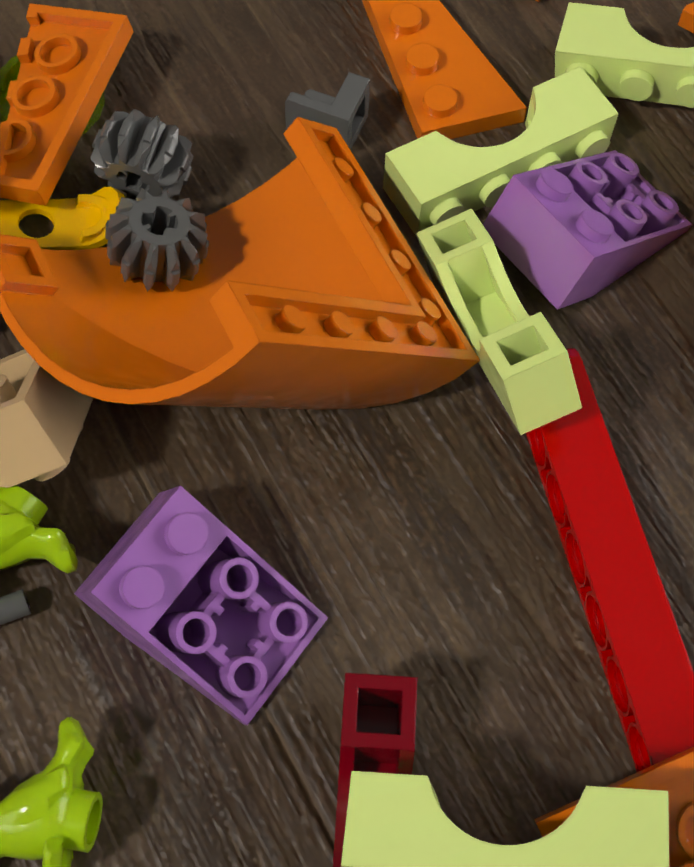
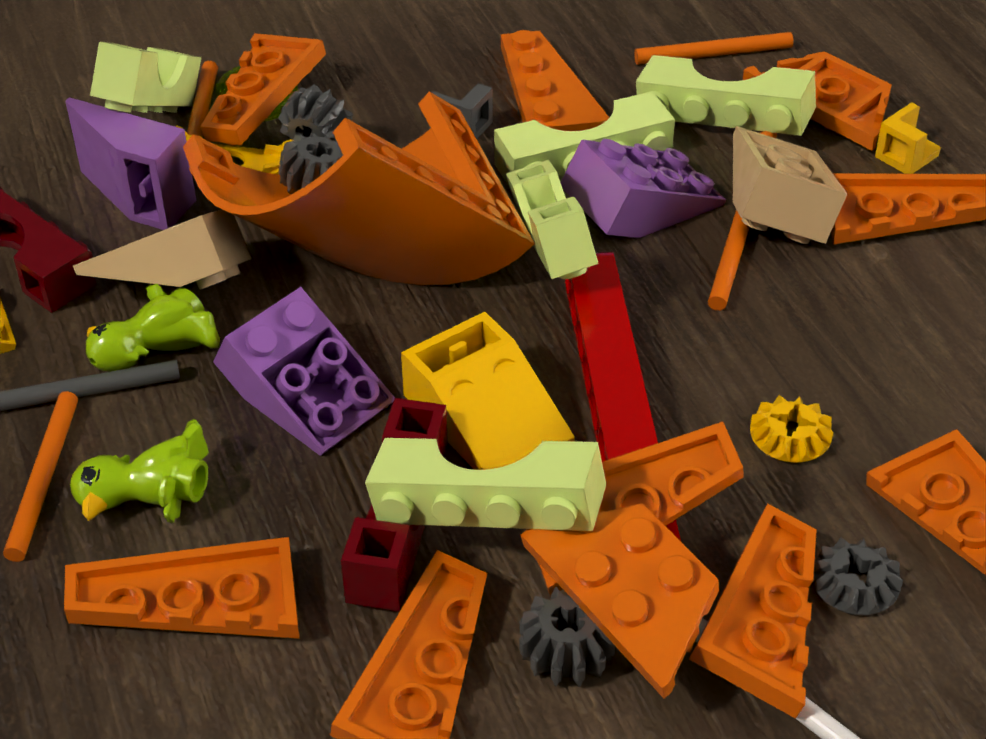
camera: 10 degrees right, 20 degrees down
(458, 621) = (489, 392): none -> yellow slope

